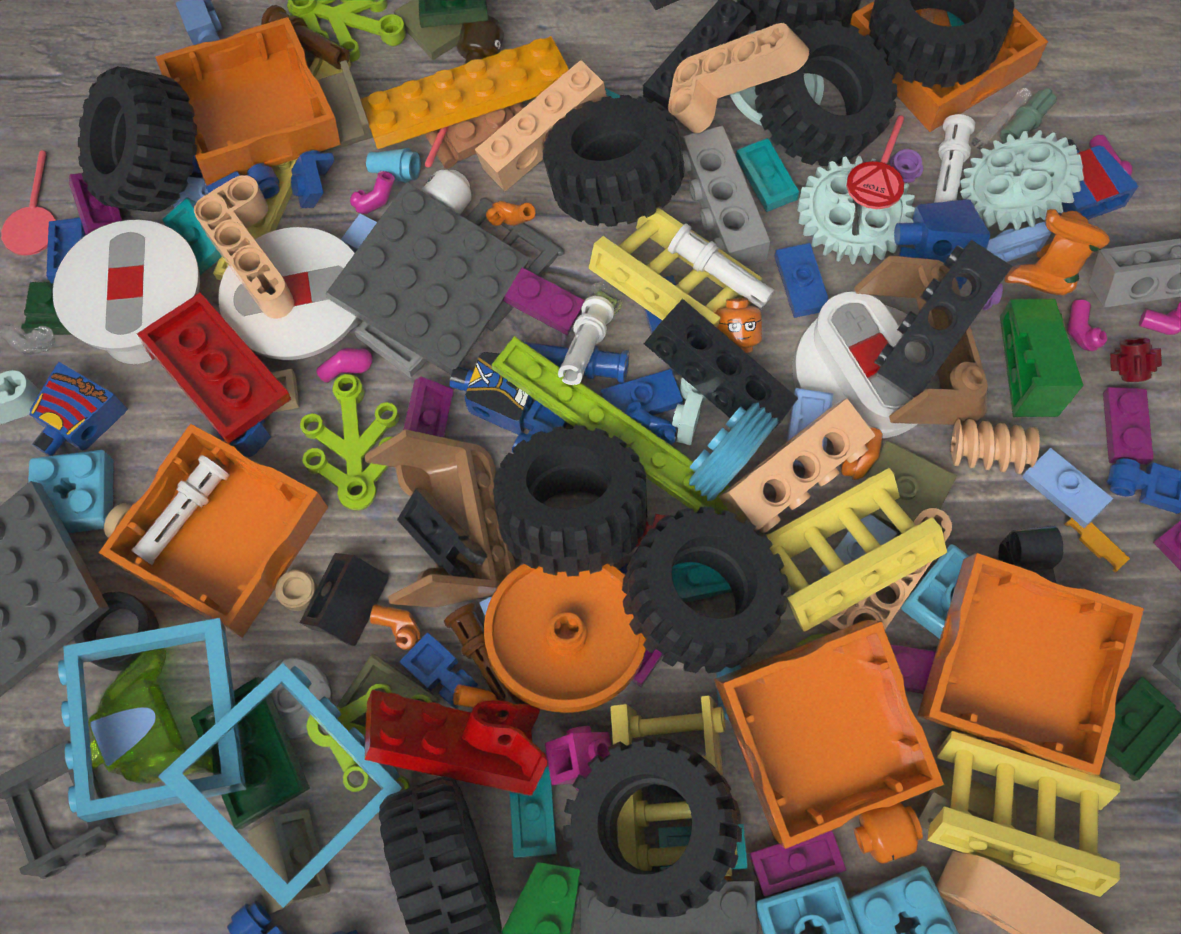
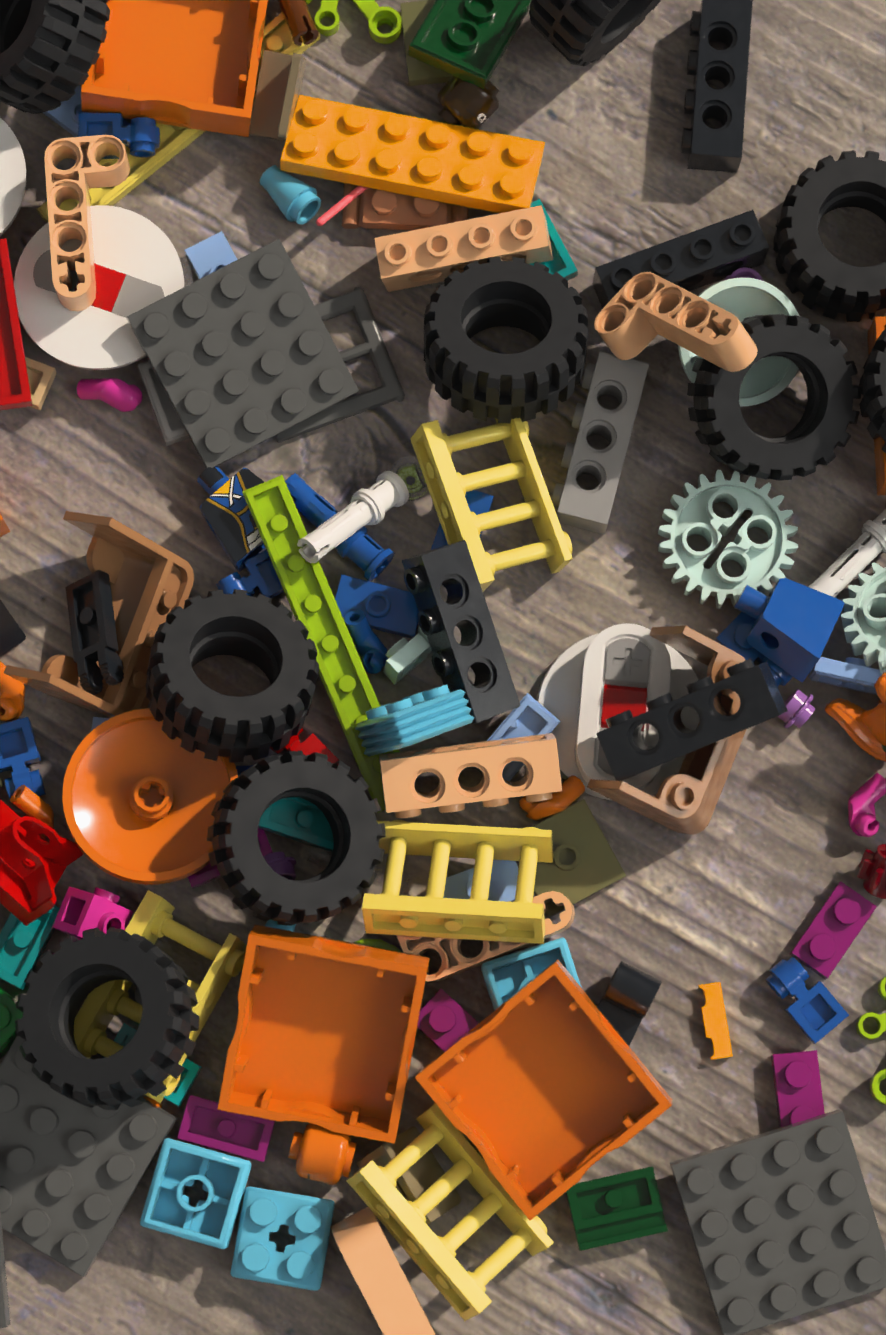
camera: 25 degrees right, 10 degrees up
(184, 222) = (34, 136): teal plate -> none
(306, 178) = (186, 162): blue bracket -> none
(352, 447) = (67, 486): lime plant -> none
(377, 197) = (253, 222): dark pink arm -> none
(428, 407) = (156, 498): magenta plate -> none
(450, 189) = (321, 265): white head -> none
(471, 636) = (66, 737): reddish brown pin -> none
(510, 213) = (373, 327): orange arm -> none
(544, 301) = (347, 444): magenta plate -> none
(708, 259) = (528, 505): white pin -> none
(741, 323) = (516, 594): orange head -> none
(767, 174) = (665, 443): teal plate -> none
(801, 279) = (621, 580): blue plate -> none
(877, 183) = (760, 527): piece -> none
(910, 160) = (820, 511): medium lavender plate -> none
(994, 444) = (678, 869): light nougat piece -> none
(1038, 358) = (791, 808): green wedge -> none
(1067, 488) = (724, 953): light blue plate -> none

